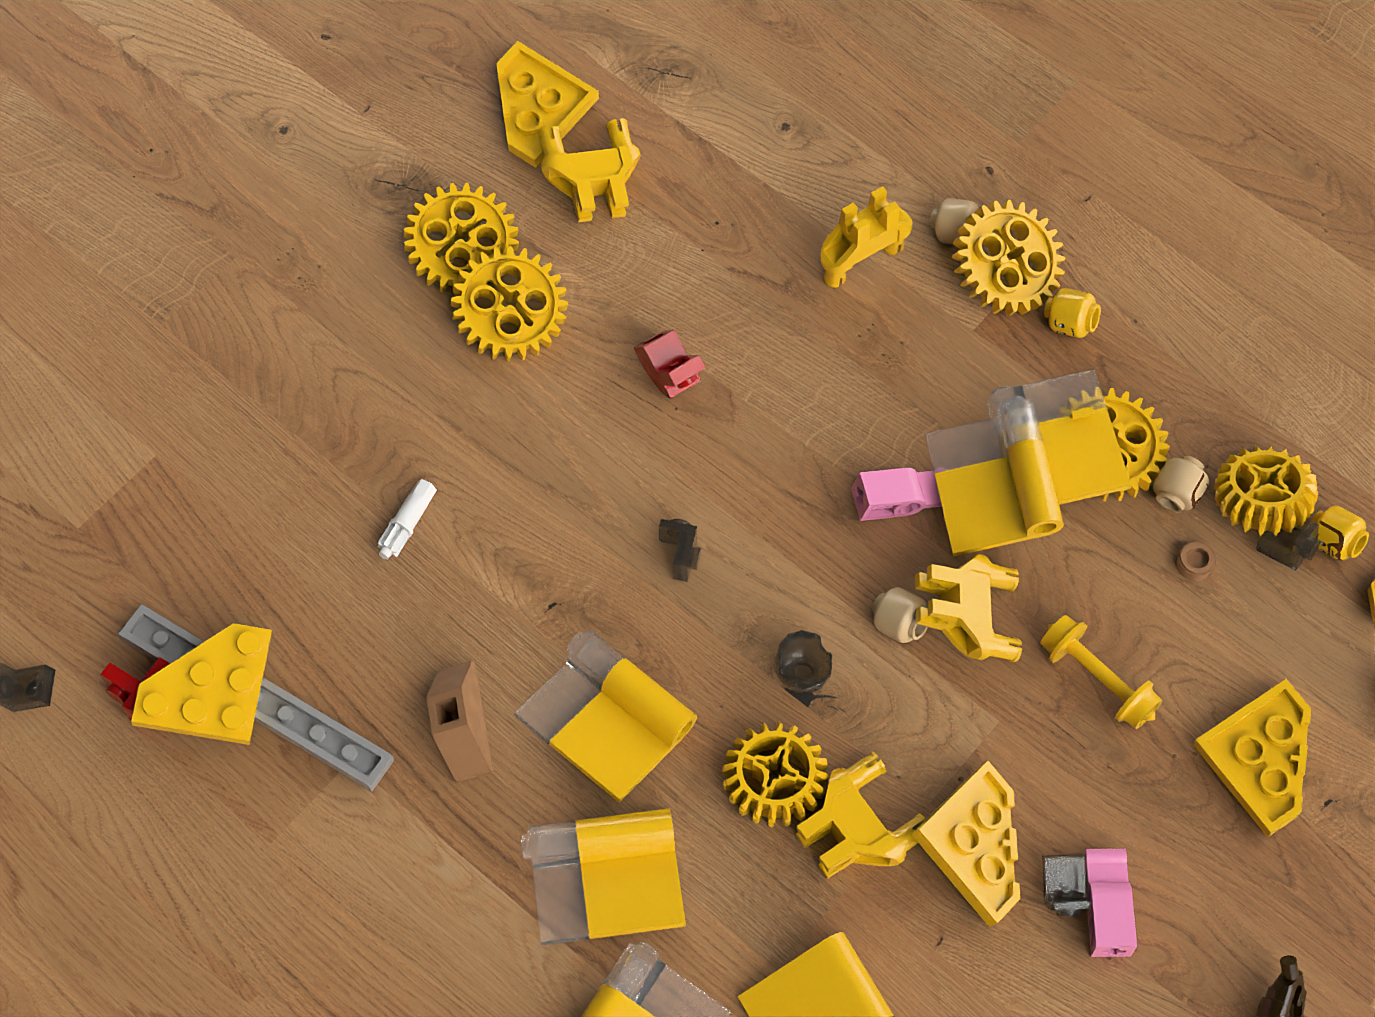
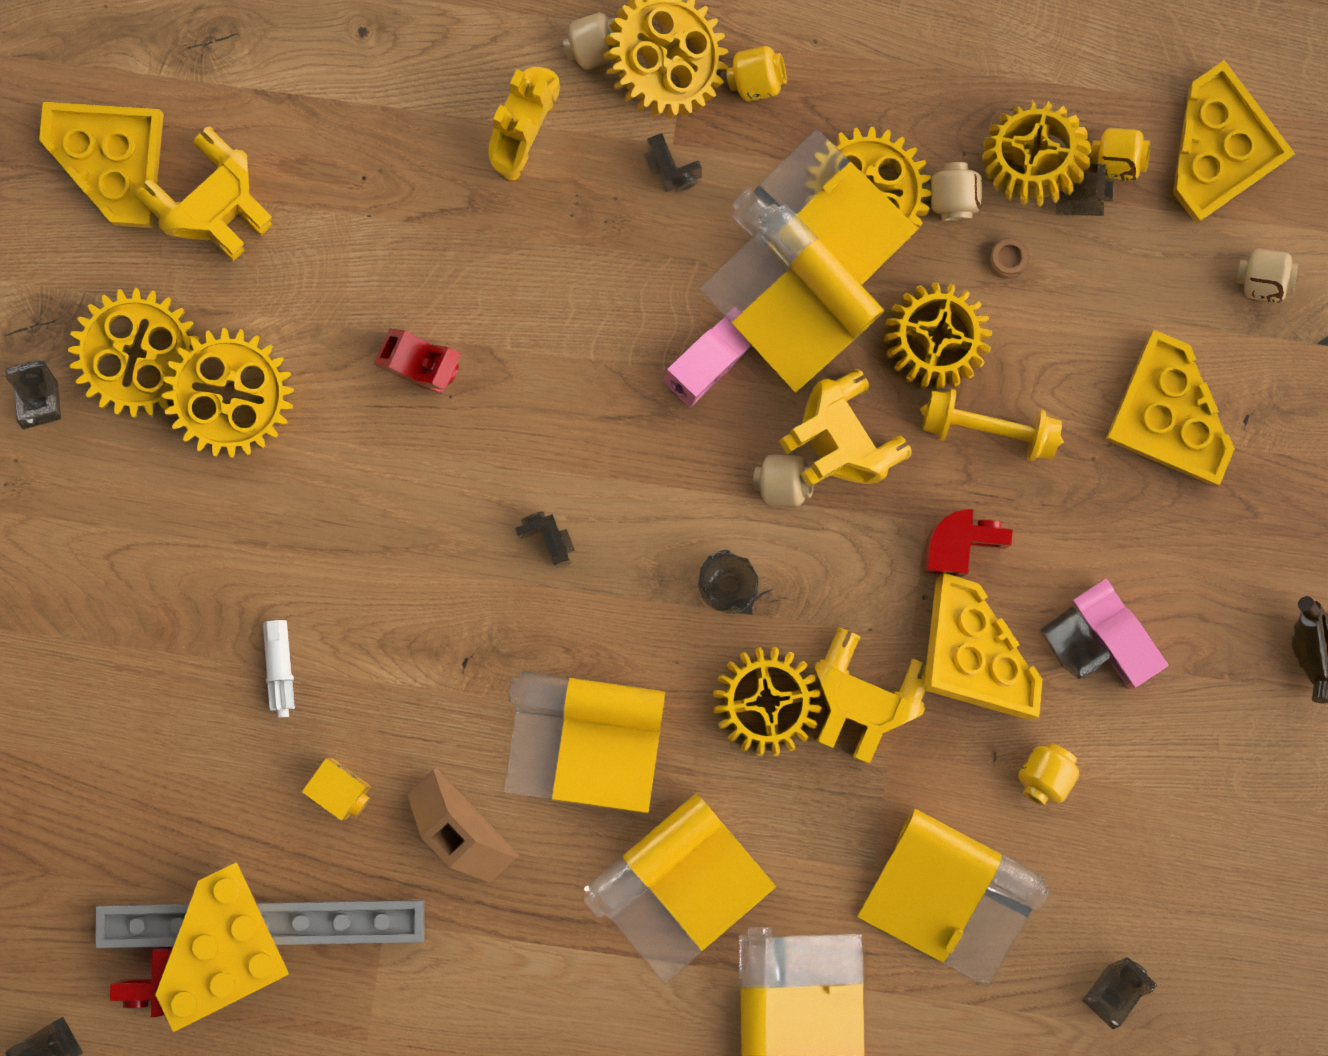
camera: 30 degrees left, 20 degrees up
(368, 225) = (34, 393): none -> clear smoke bracket
(386, 632) = (338, 790): none -> yellow brick
(961, 350) = (661, 162): none -> clear smoke bracket
(976, 976) = (1048, 774): none -> yellow head
(1017, 739) = (952, 538): none -> red brick
(1083, 558) = (954, 339): none -> yellow gear

